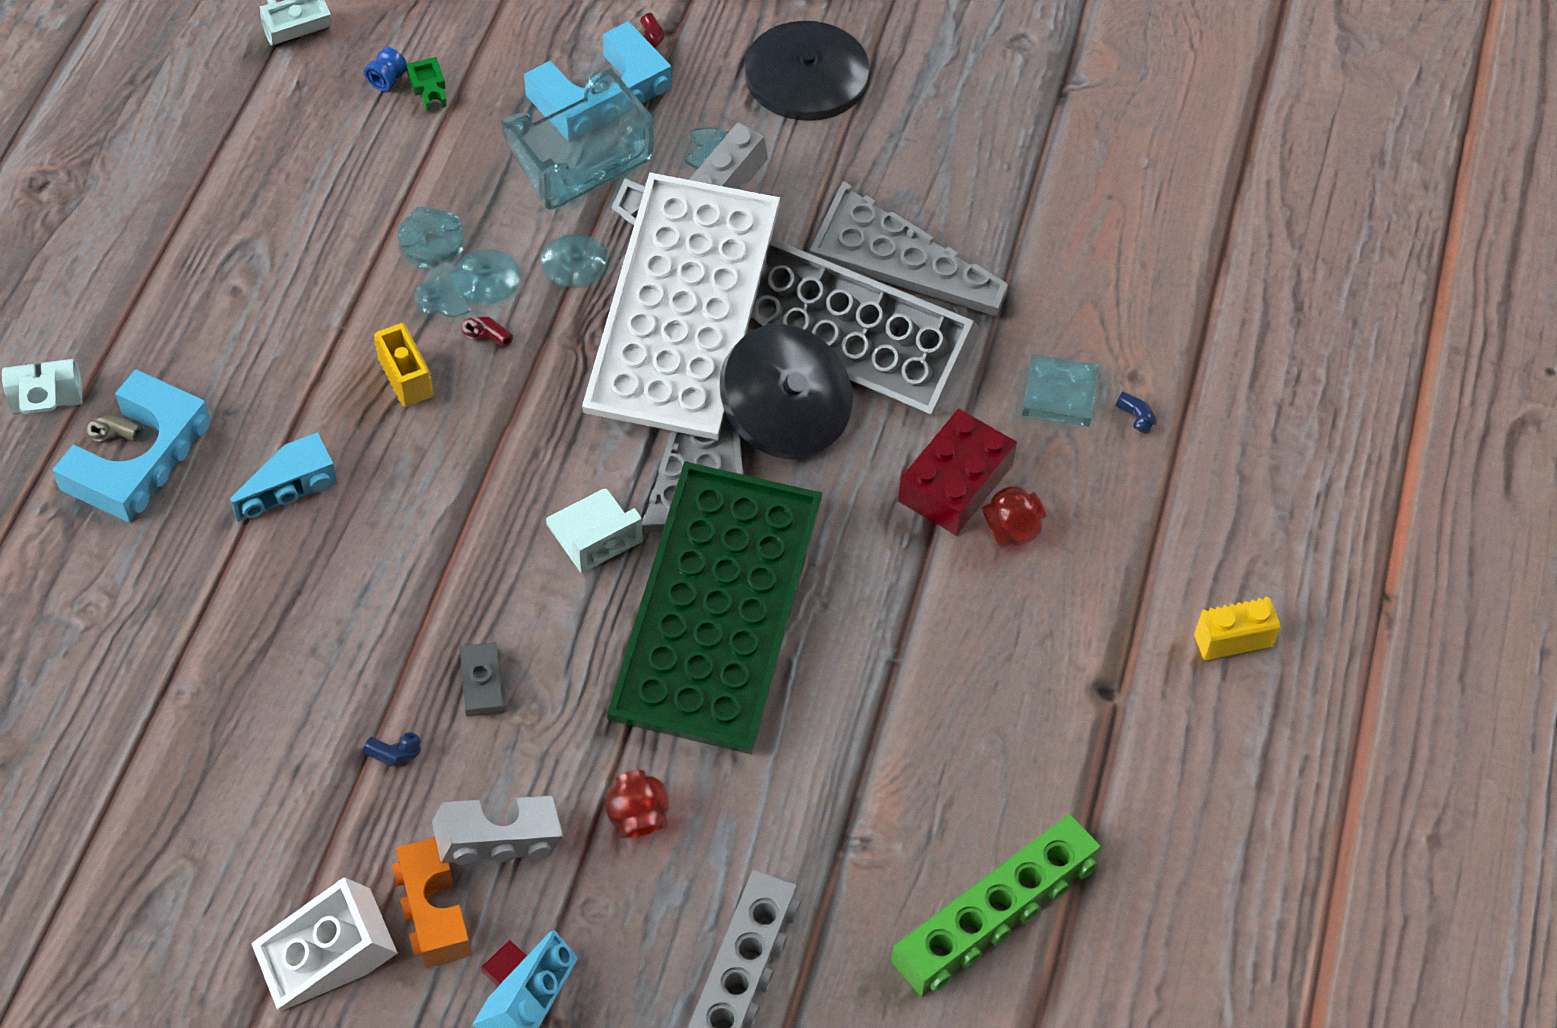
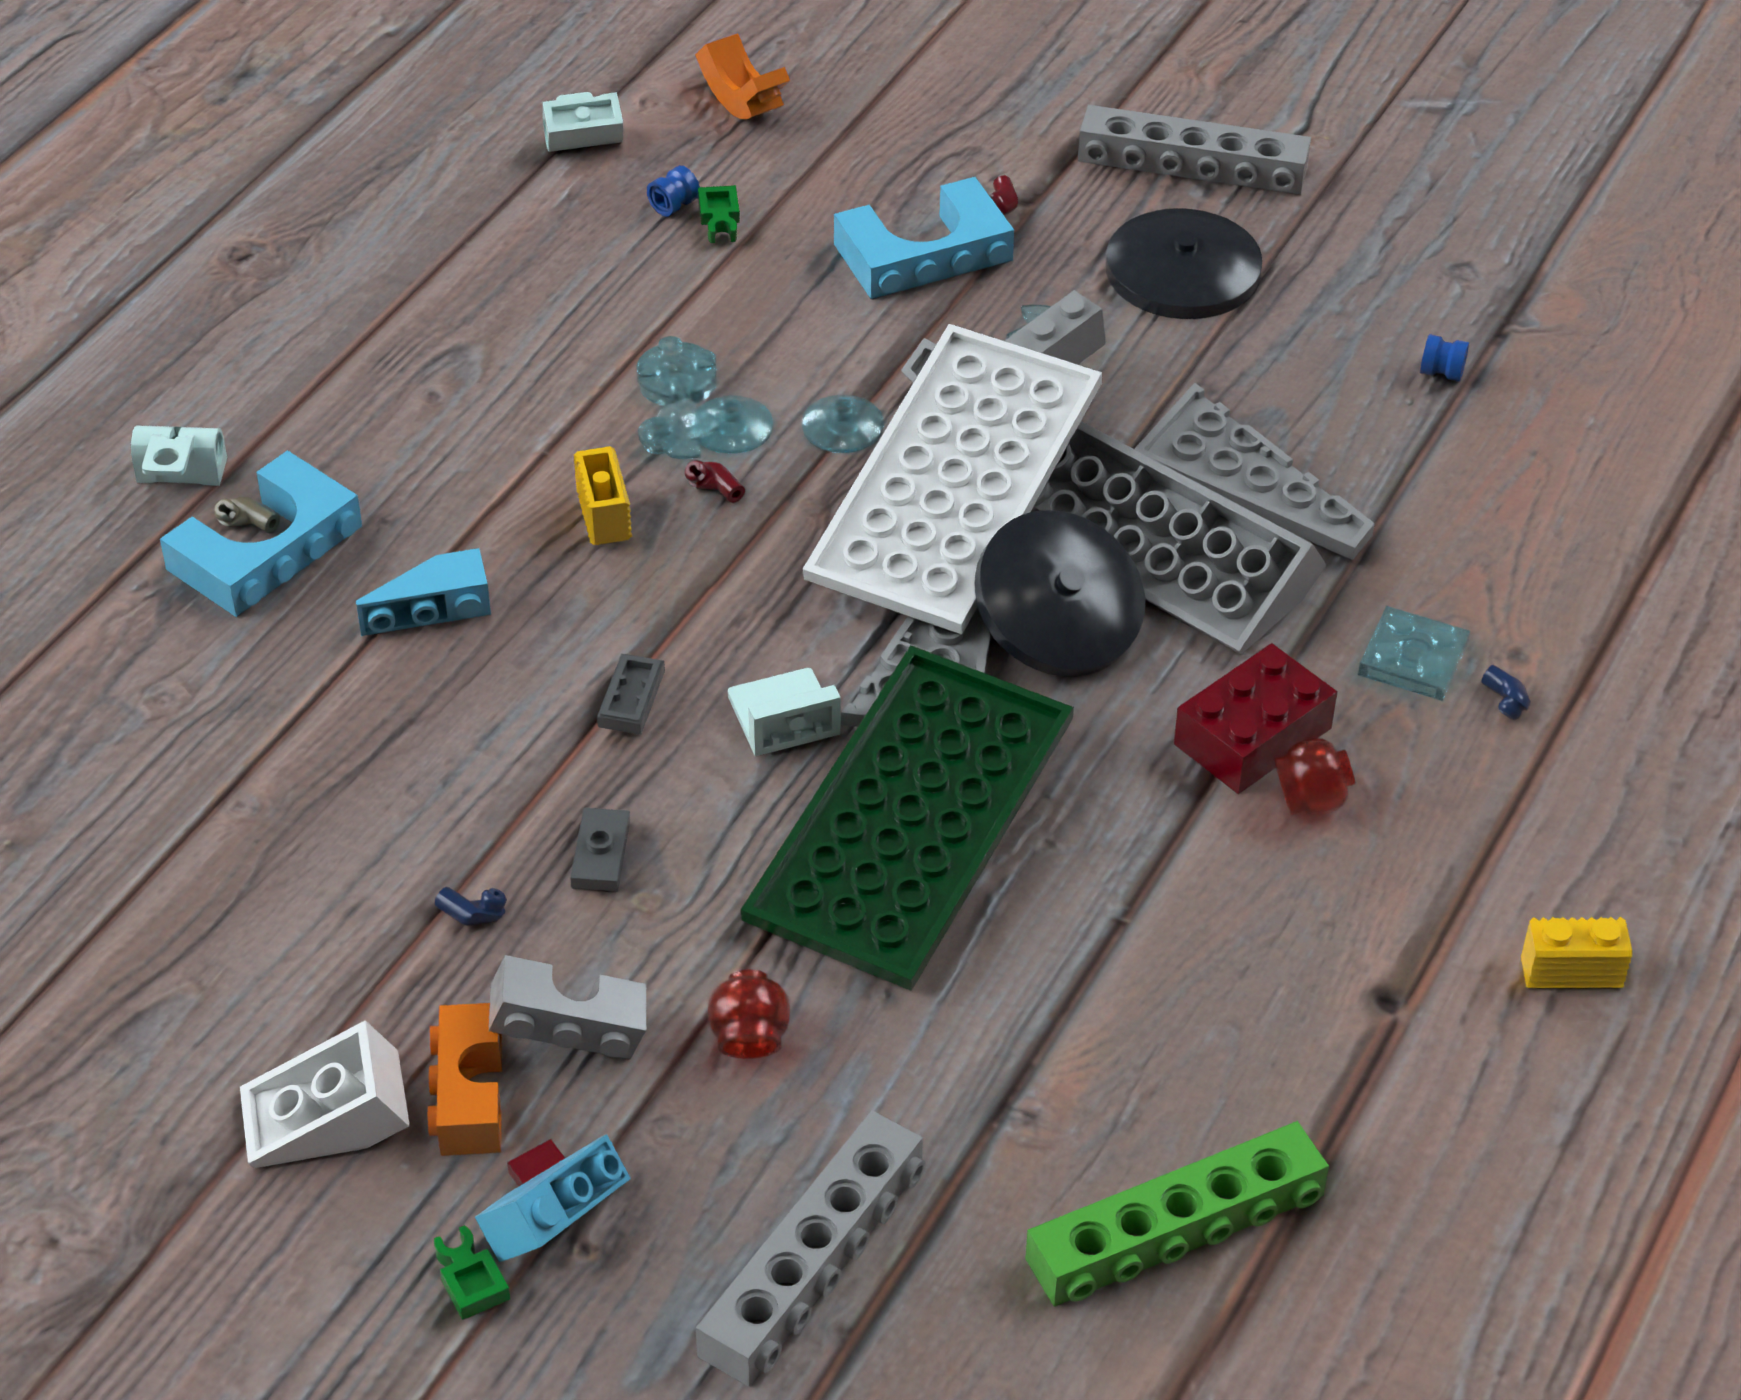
camera: 15 degrees right, 10 degrees down
(470, 537) = (631, 694): none -> dark grey plate
(583, 142) = (885, 296): clear light blue windscreen -> none
(1027, 126) = (1444, 357): none -> blue wheel

